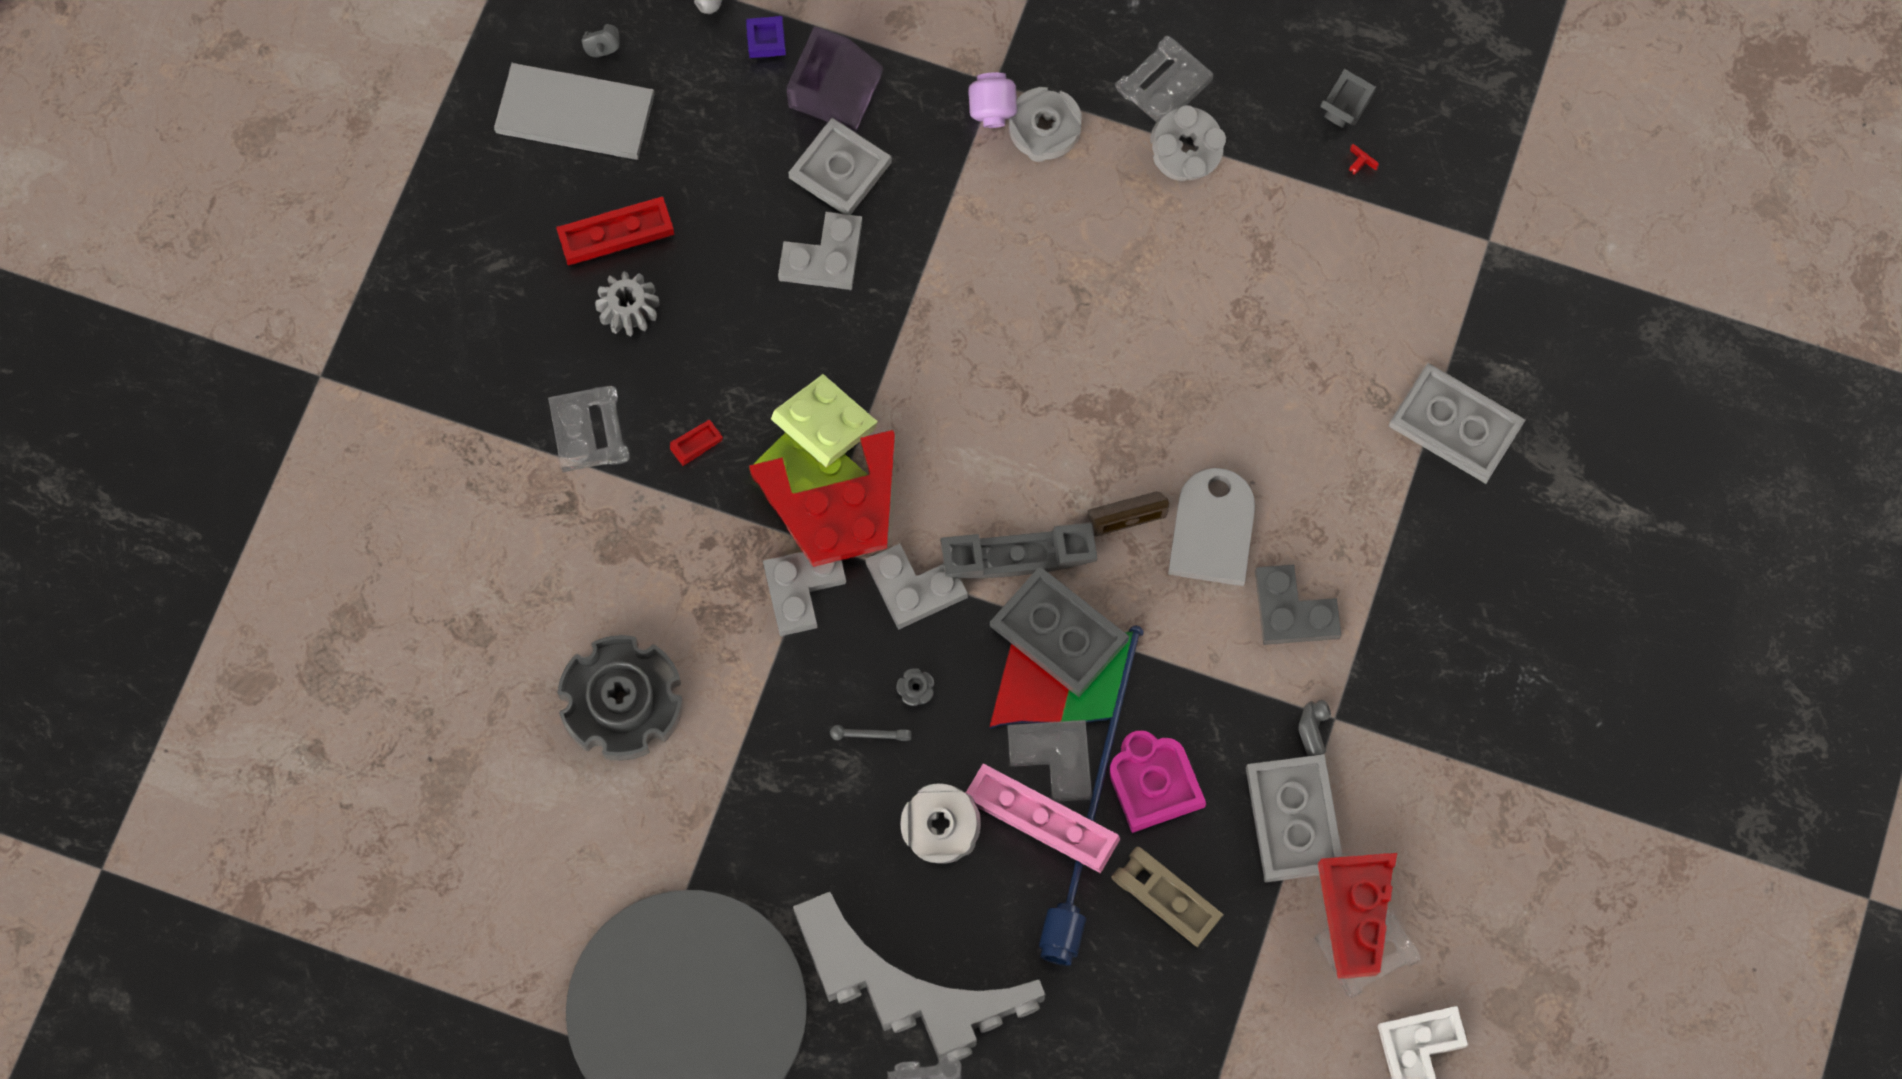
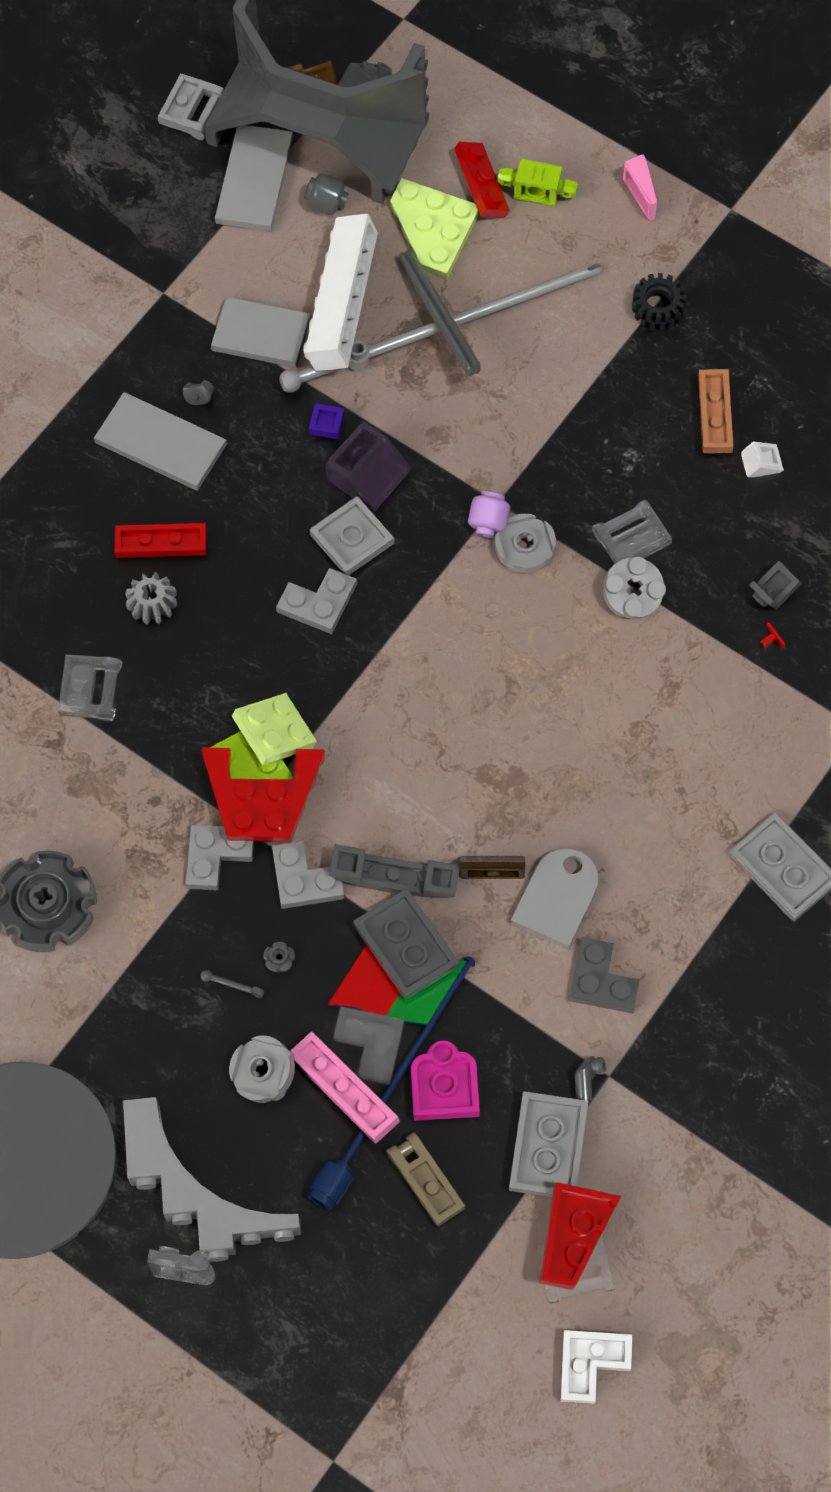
camera: 20 degrees right, 5 degrees down
(695, 442) = (170, 720): red piece -> none

